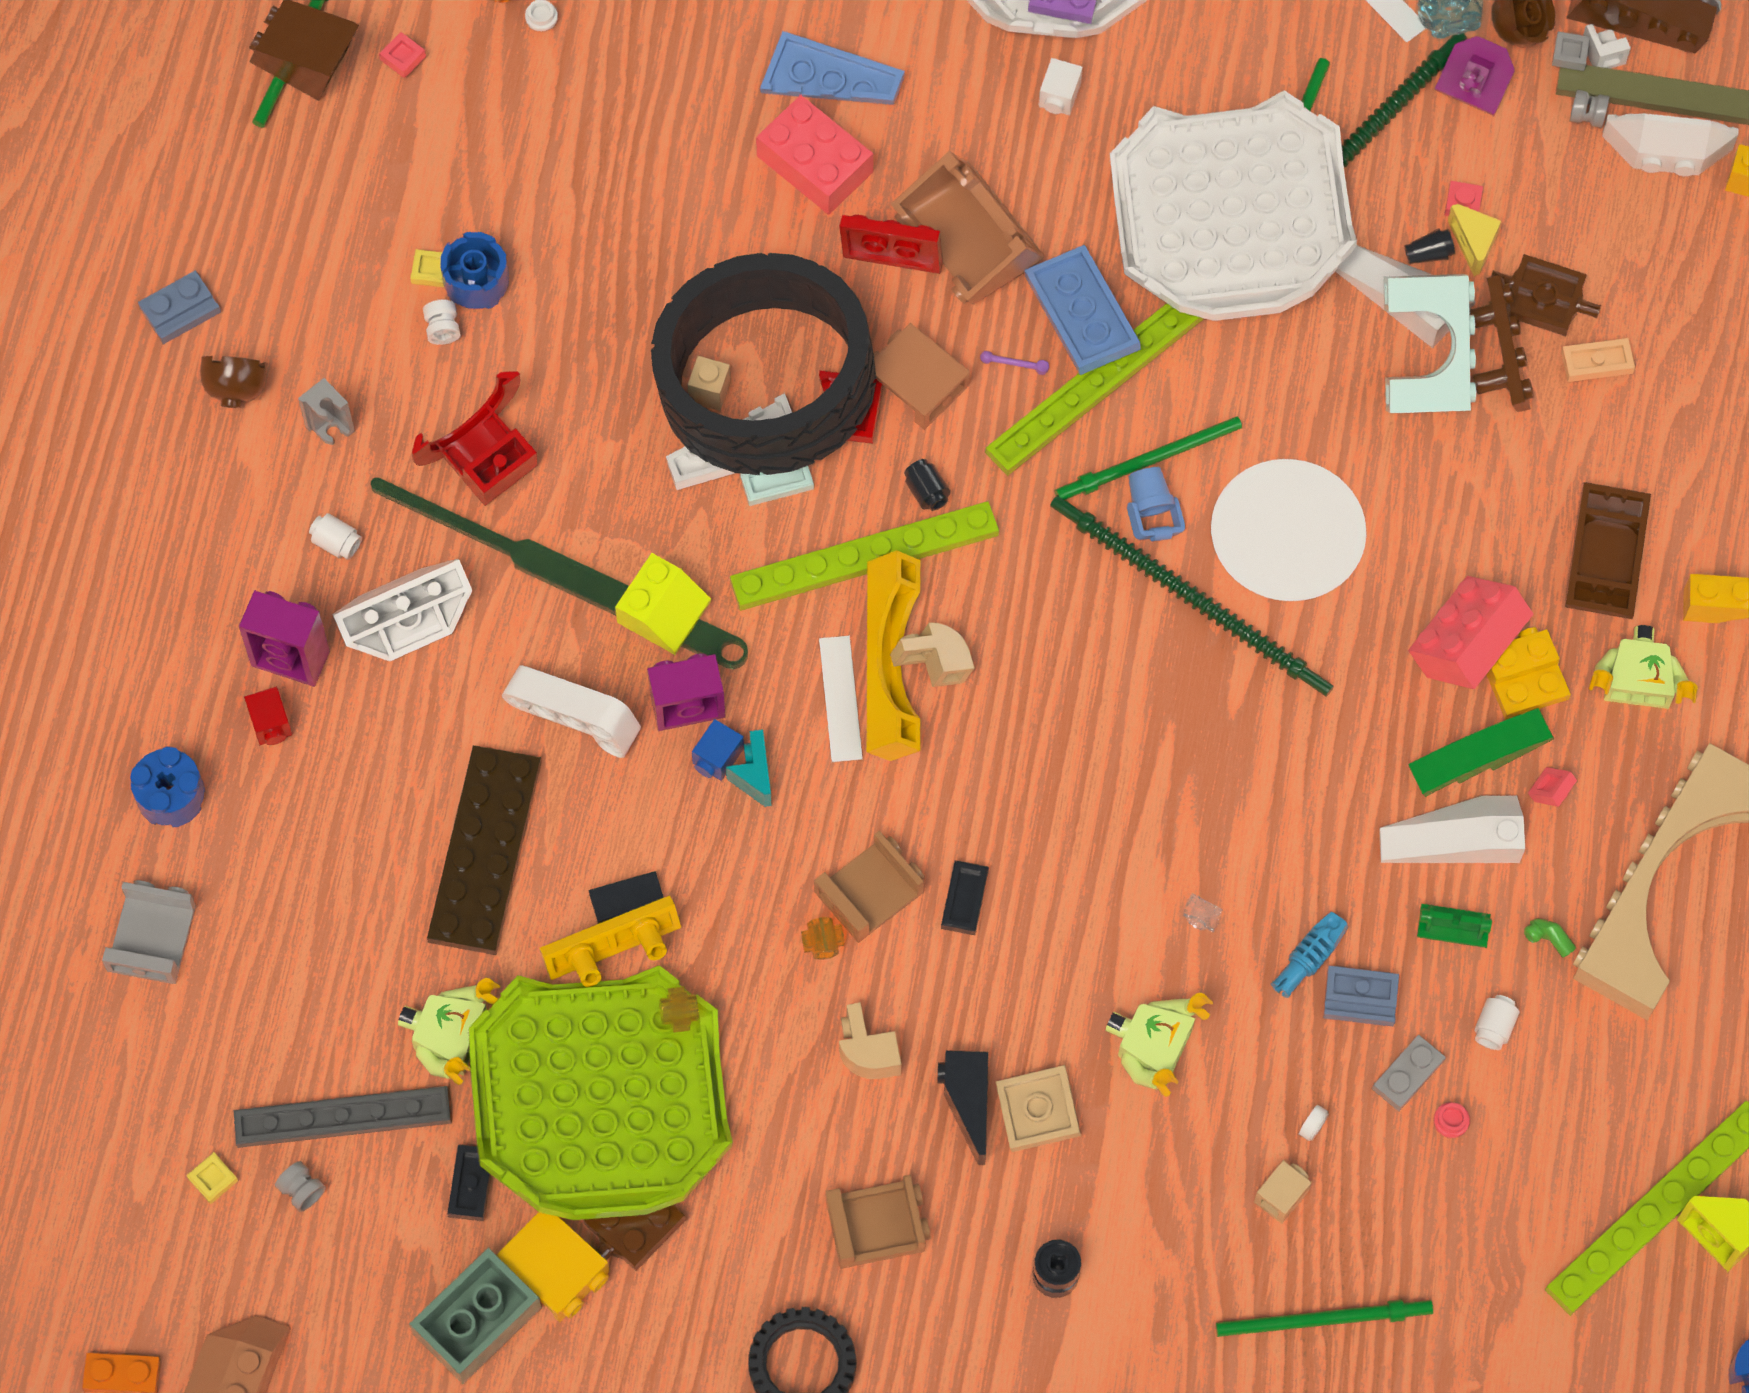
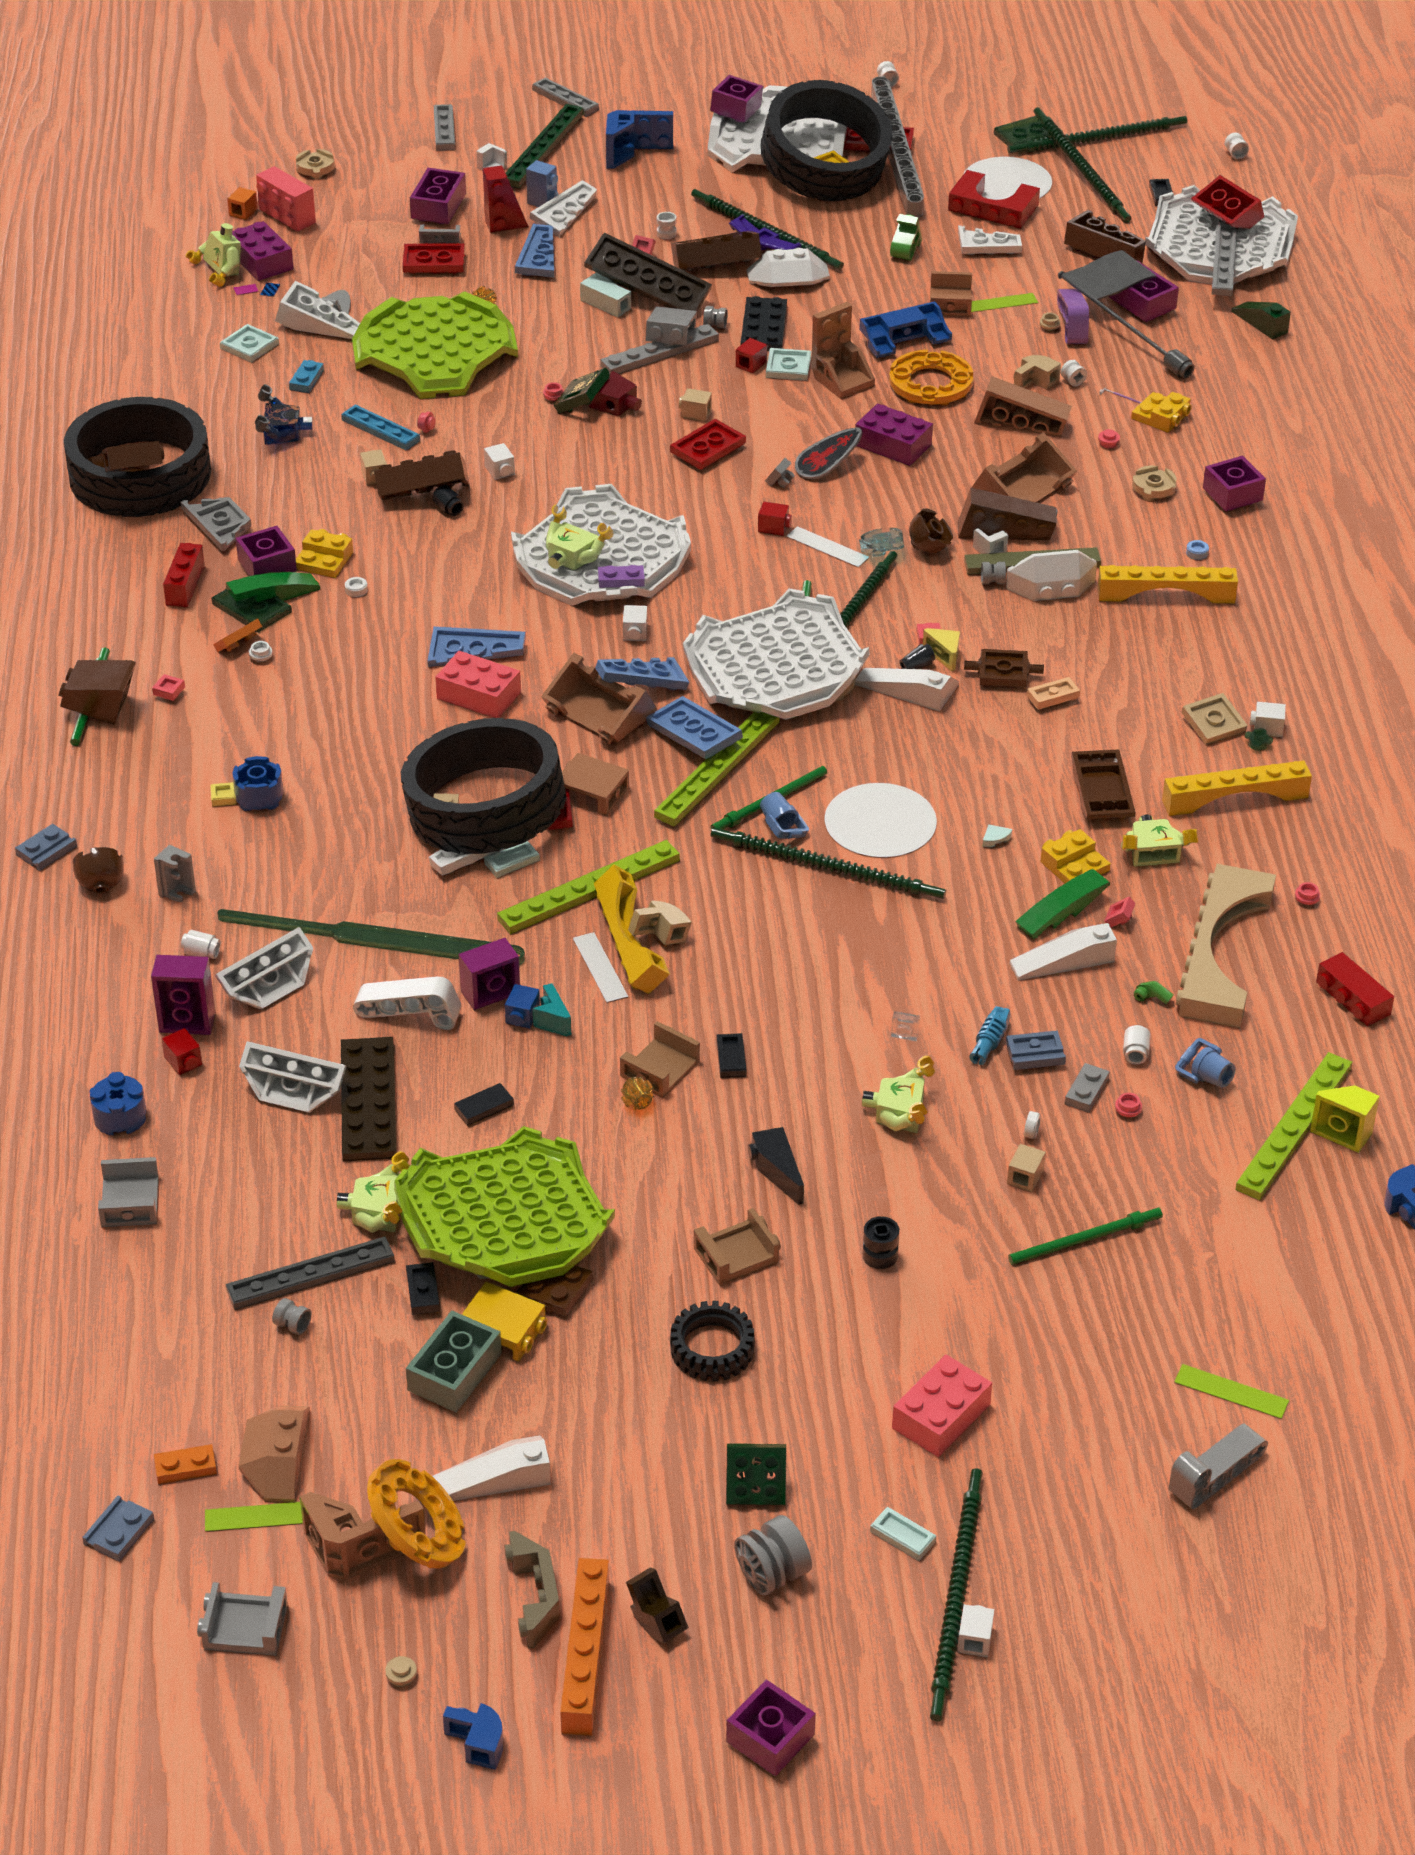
camera: 15 degrees left, 25 degrees down
(212, 1178) = (220, 1330): light yellow tile -> none
(392, 798) = (290, 1077): none -> white wedge
(442, 326) = (242, 817): white wheel -> none
(483, 447) = (295, 877): red piece -> none
(585, 948) = (480, 1124): yellow plate -> none
(662, 604) = (452, 930): neon yellow slope -> none
(678, 1009) = (547, 1143): clear yellow gear -> none
(869, 1055) = (694, 1152): tan brick -> none
(891, 243) = (553, 712): red plate -> none
(927, 485) = (620, 838): black brick -> none
(1038, 1108) = (830, 1159): tan plate -> none
(1041, 366) = (676, 767): medium lavender hinge -> none
(1054, 193) = (651, 673): none -> medium blue wing
(1430, 601) = (996, 835): none -> light aqua tile
(1449, 385) = (943, 664): light aqua arch -> none
(1454, 925) = (1076, 1000): green hinge -> none
(1470, 632) = (1029, 836): coral brick -> none
(1477, 74) = (912, 569): magenta piece -> none
(1514, 357) = (998, 698): reddish brown plate -> none
(1570, 51) = (969, 546): light grey tile -> none
(1577, 1087) = (1207, 1065): none -> medium blue piece

